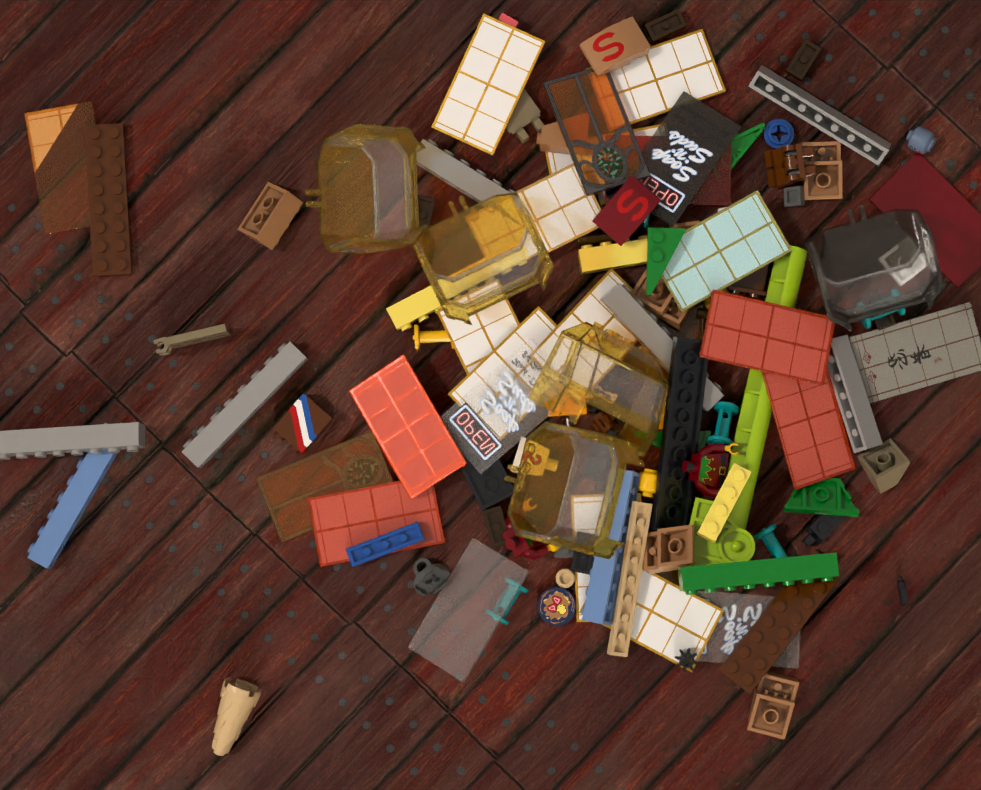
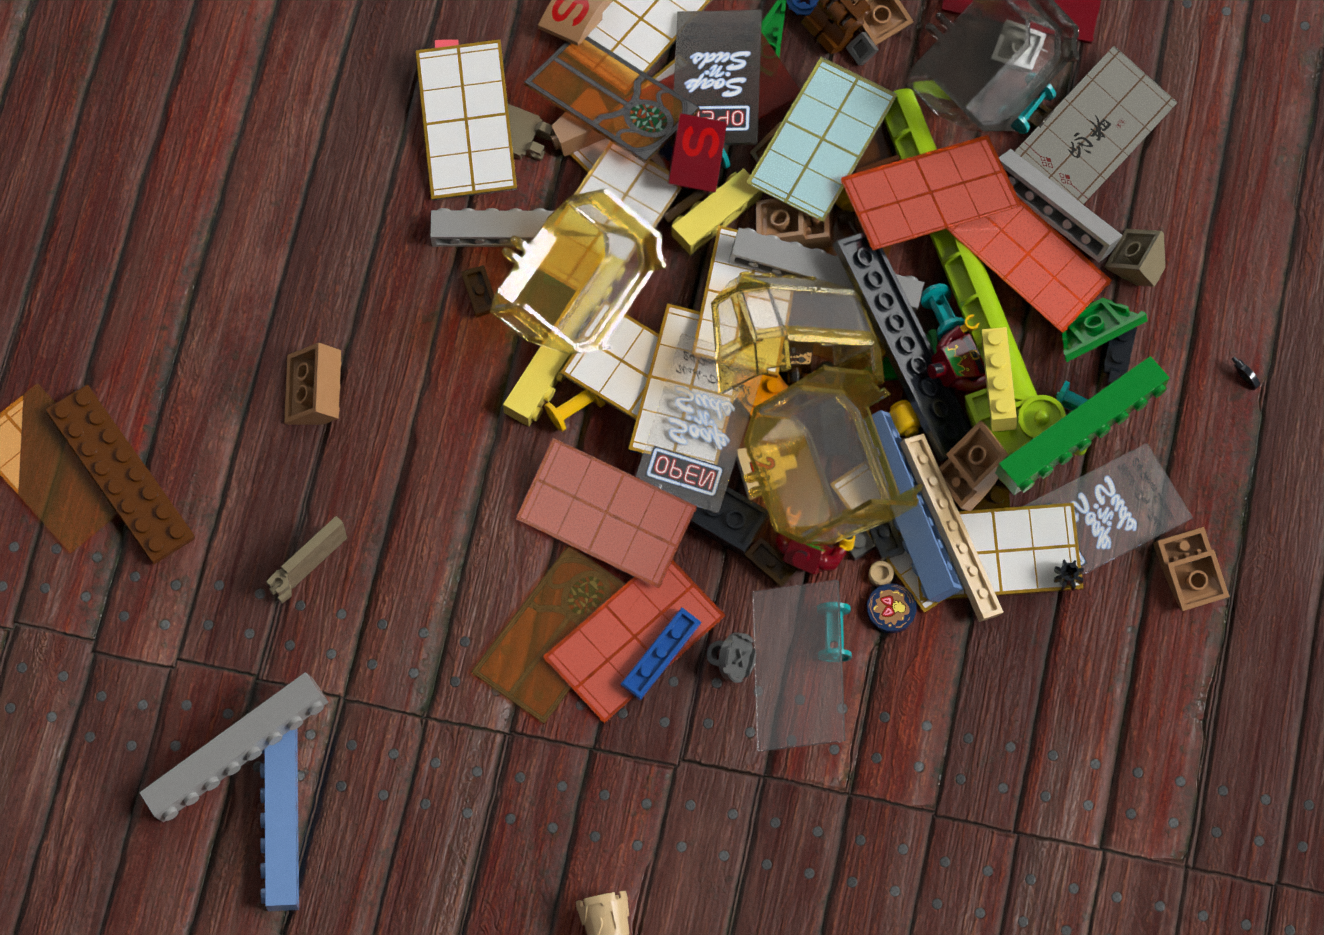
camera: 30 degrees left, 15 degrees down
(244, 405) = (409, 600): light grey brick -> none
(302, 424) = (487, 580): panel -> none
(368, 189) = (403, 288): clear yellow windscreen -> none
(660, 248) = (759, 170): green wing -> none
(775, 631) = (1142, 486): reddish brown plate -> none

